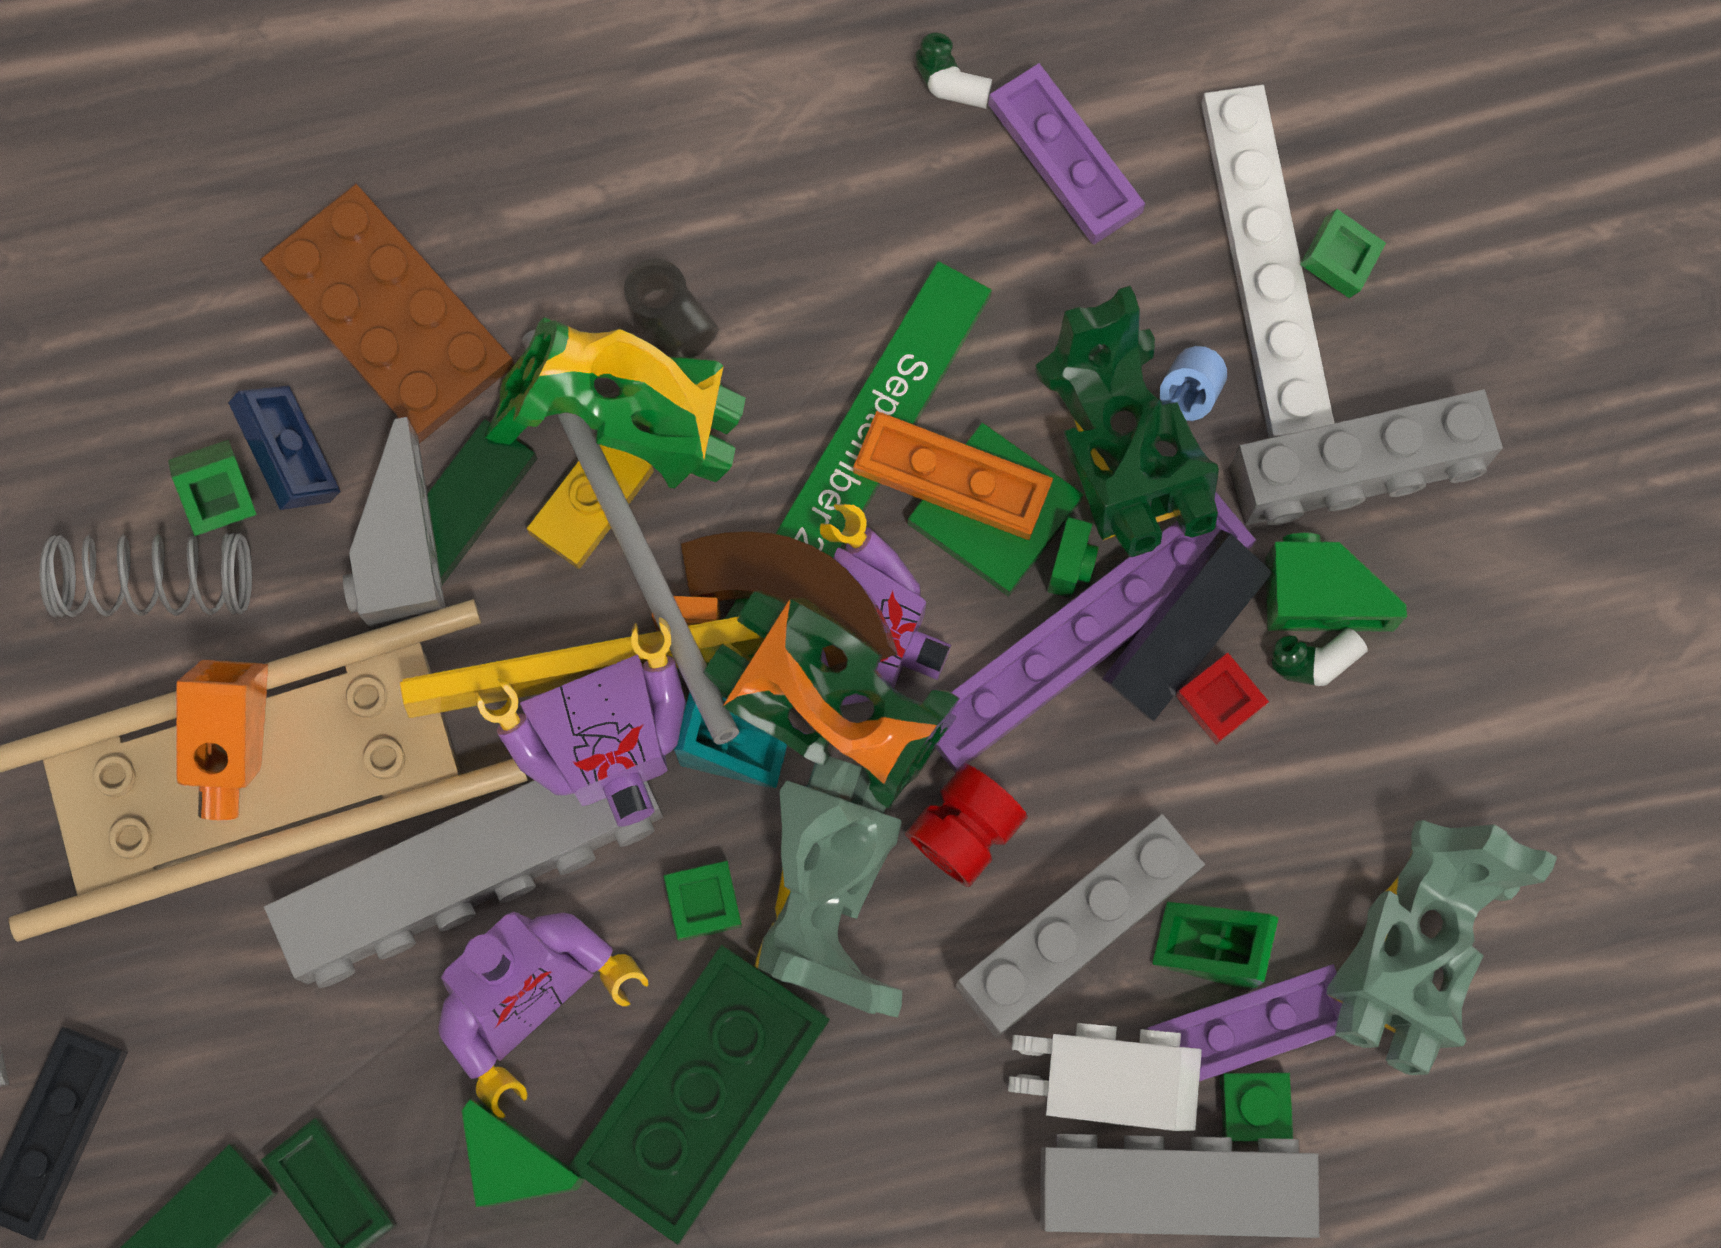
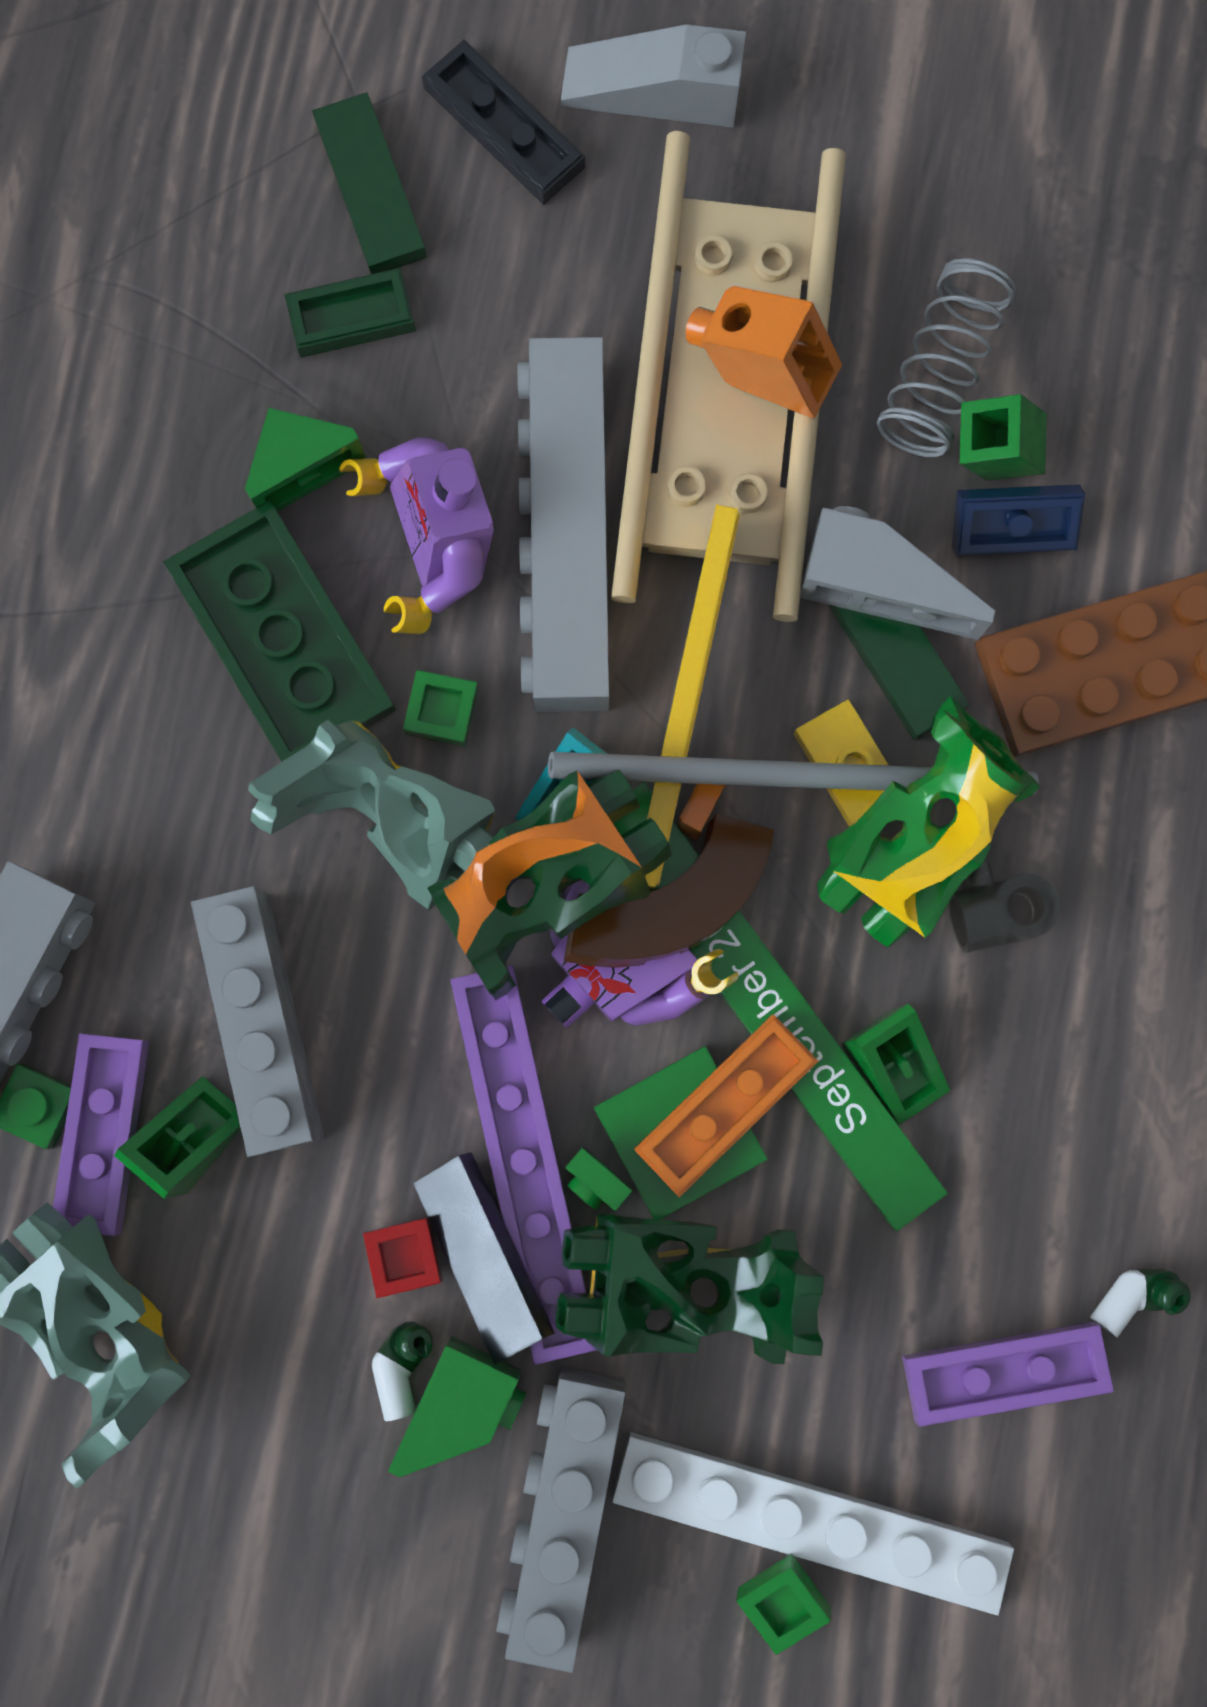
camera: 115 degrees right, 5 degrees up
(600, 731) = (619, 665): medium lavender torso -> none
(841, 350) = (898, 1063): none -> green slope
(966, 824) = (394, 963): red wheel -> none
(1115, 1080) = (109, 986): white hinge -> none
(1194, 381) = (714, 1382): light blue piece -> none

